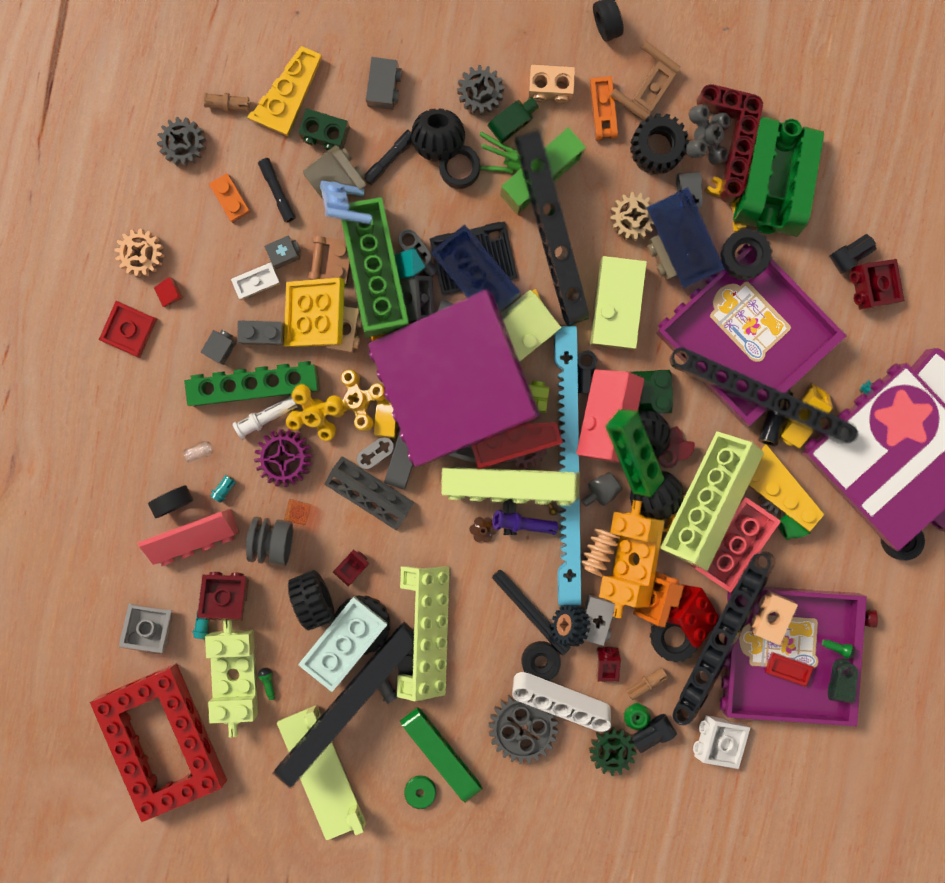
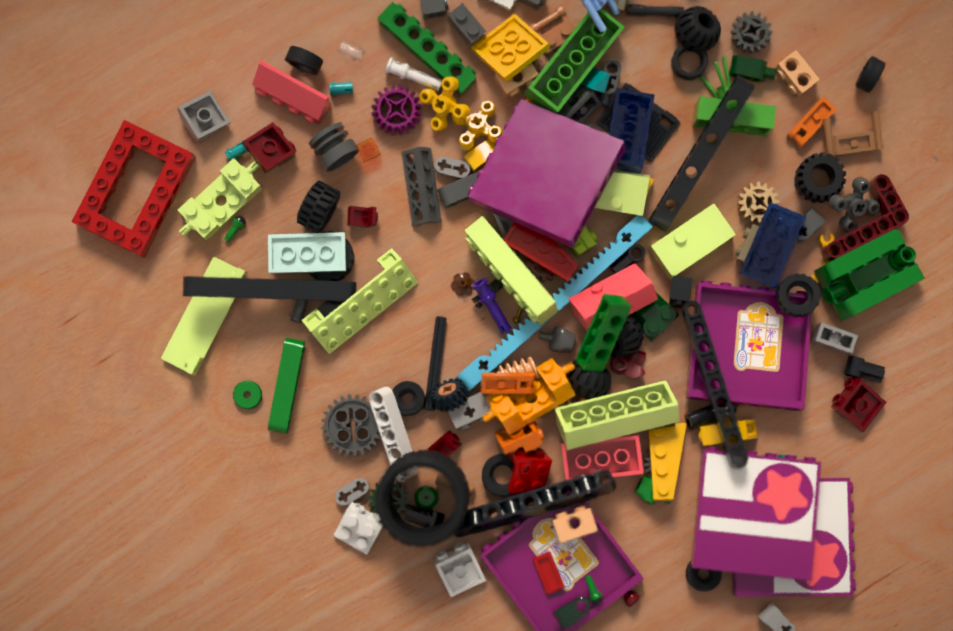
camera: 50 degrees right, 5 degrees down
(573, 774) = (355, 495): none -> light grey beam
(605, 570) = (507, 383): none -> orange plate
(615, 796) = (358, 528): none -> white plate
(653, 352) = (680, 291): none -> black brick
(661, 769) = (405, 532): none -> black tyre
(807, 255) = (834, 338): none -> light grey brick

